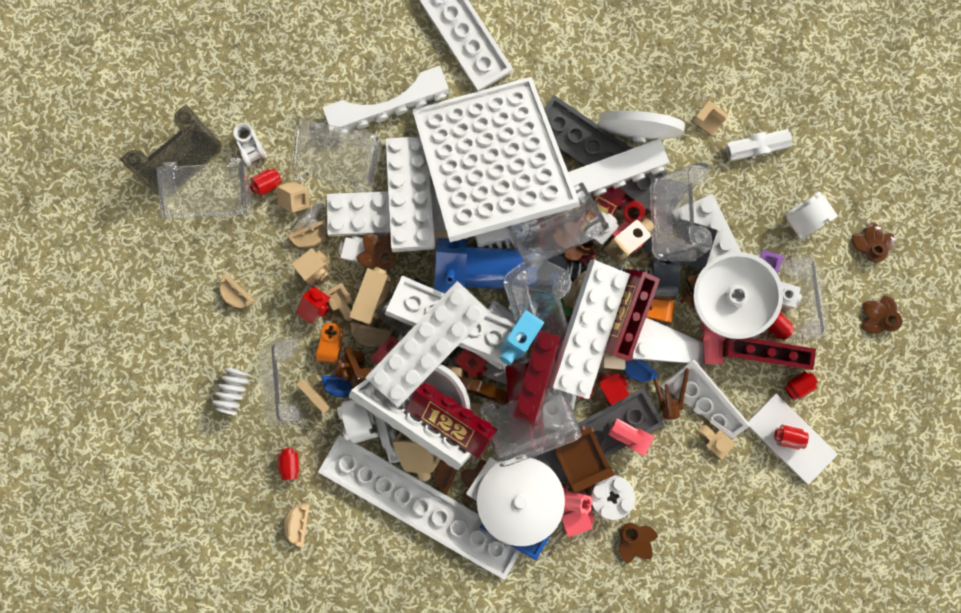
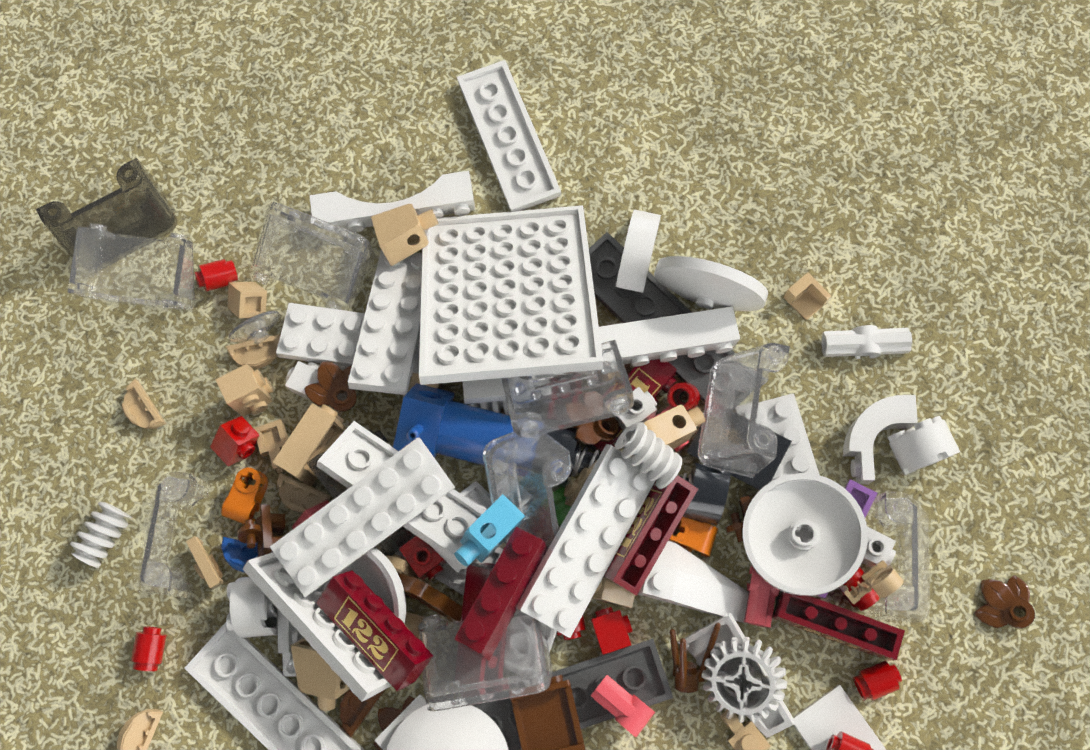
camera: 15 degrees right, 10 degrees down
(250, 147) = (210, 229): white piece -> none
(401, 123) = (402, 231): none -> tan torso
(582, 106) = (638, 251): none -> white arch
(623, 261) = (650, 453): none -> white piece
(639, 371) = (652, 614): blue plate -> none
(703, 403) = (756, 679): none -> white gear
(766, 212) = (885, 414): none -> white arch
(798, 320) = (883, 583): none -> tan piece
(874, 239) = (1008, 495): reddish brown plate -> none

